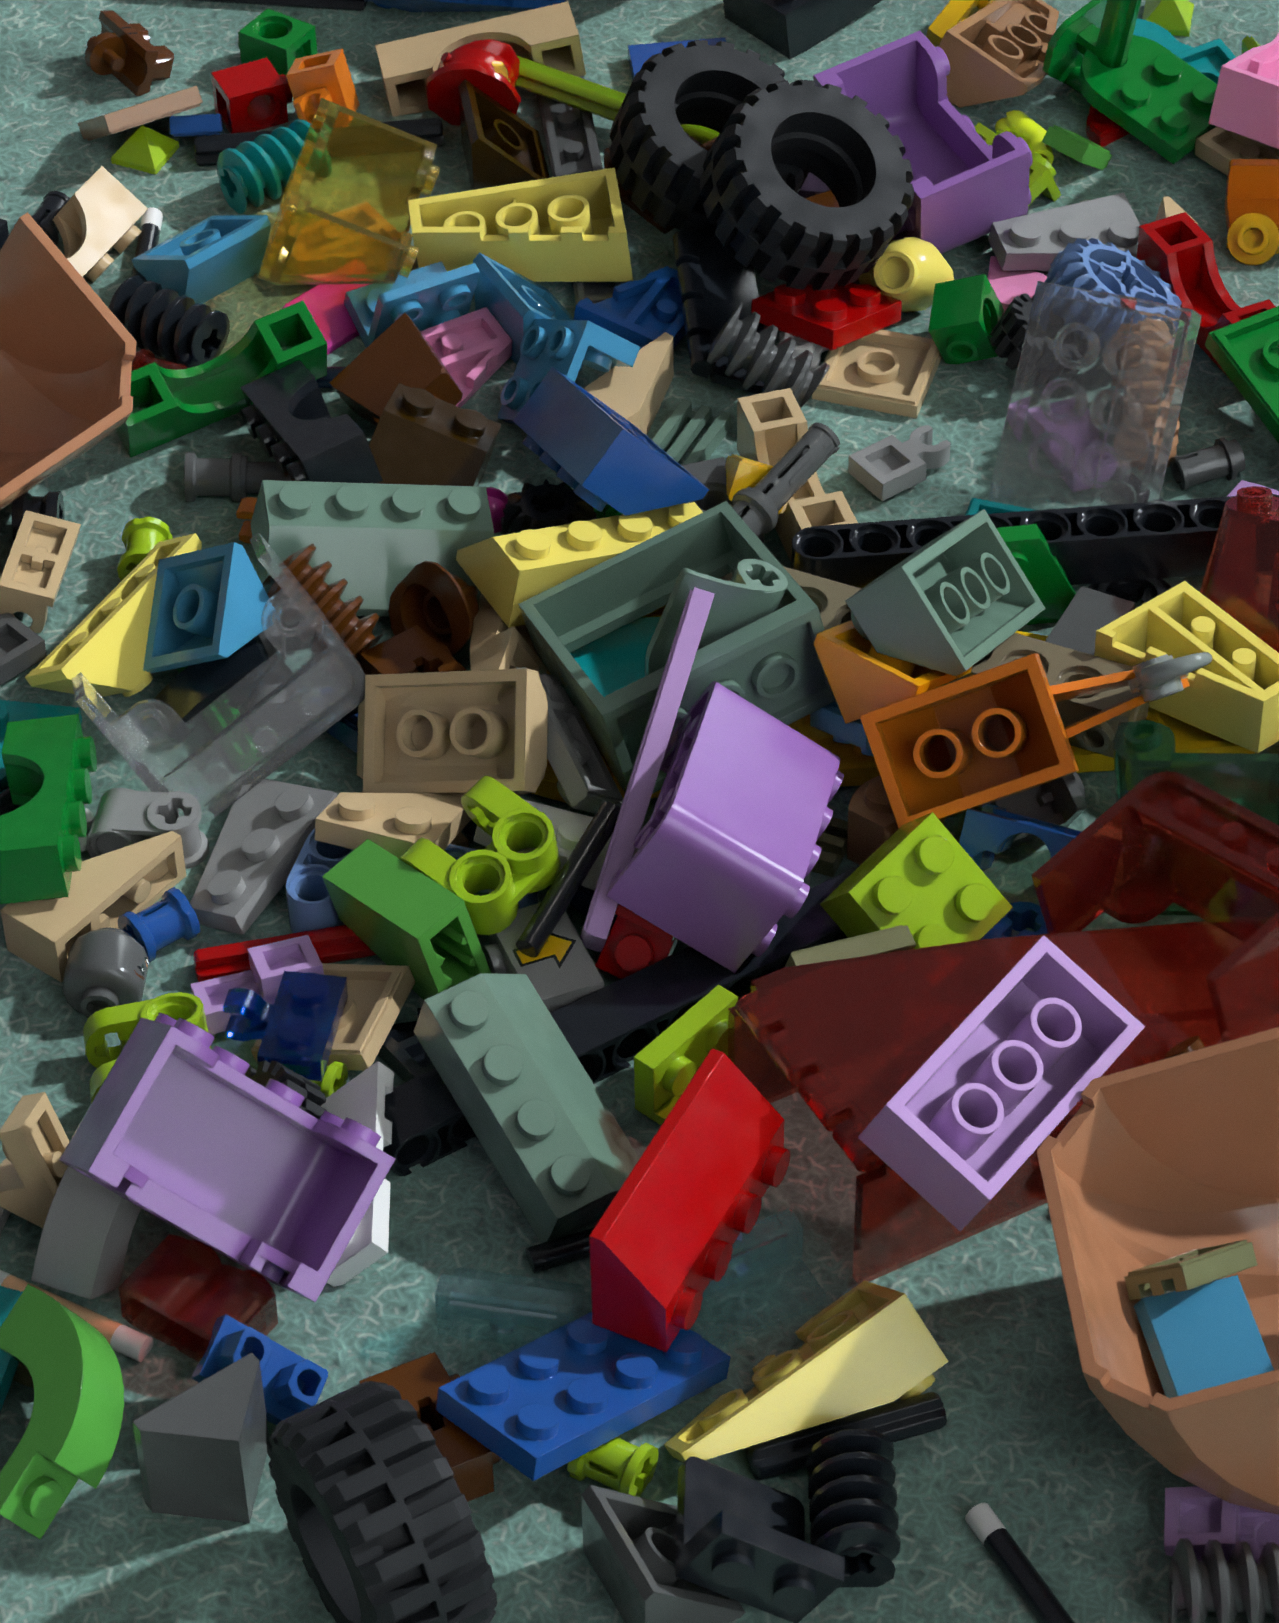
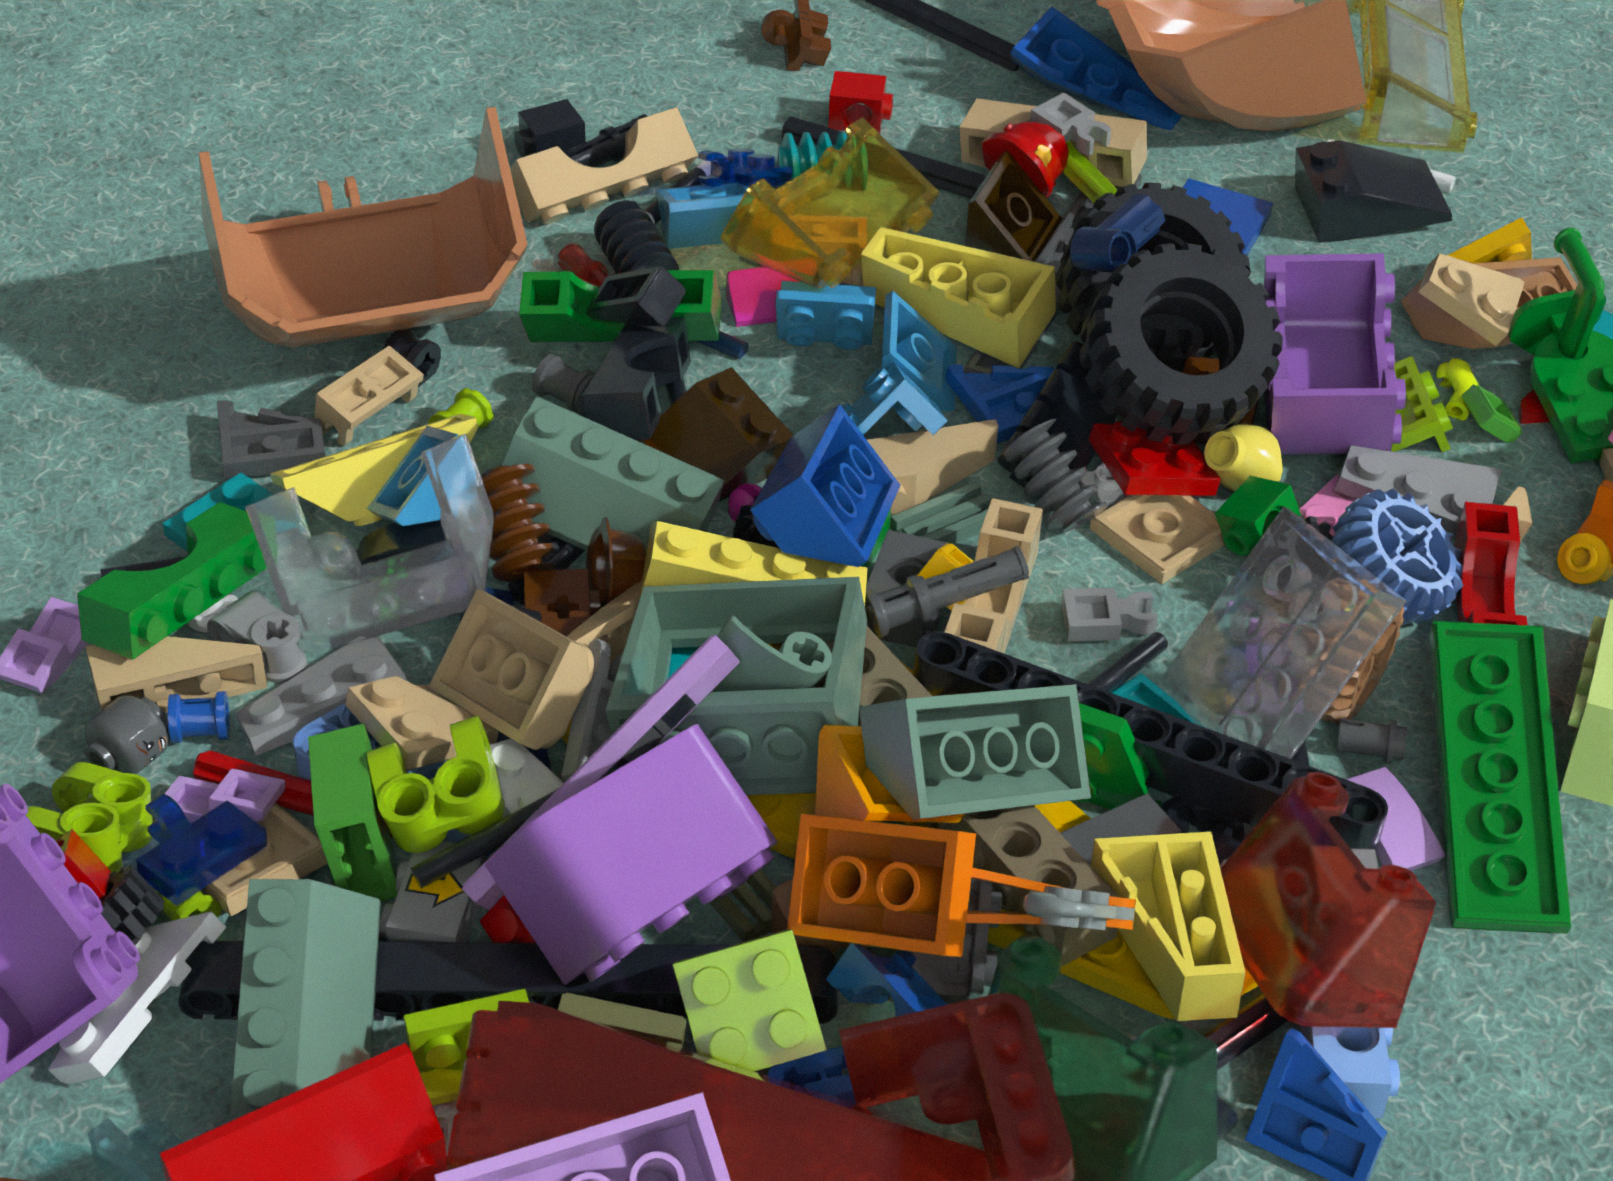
camera: 30 degrees right, 0 degrees up
(140, 113) = (760, 82): medium nougat tile -> none
(145, 150) = (752, 113): lime slope -> none
(194, 205) = (743, 168): none -> clear blue plate
(196, 125) = (800, 108): blue tile -> none
(272, 359) = (637, 297): none -> black slope
(278, 39) = (913, 73): green brick -> none
(319, 77) = (909, 117): orange brick -> none
(394, 358) = (767, 358): reddish brown torso -> none
(470, 349) = (825, 370): bright pink wing -> none
(507, 27) = (1073, 122): none -> light grey plate
(689, 107) = (1117, 236): none -> dark blue piece
(957, 487) = (1130, 663): none -> black bar
(997, 43) = (1473, 295): none -> tan wing

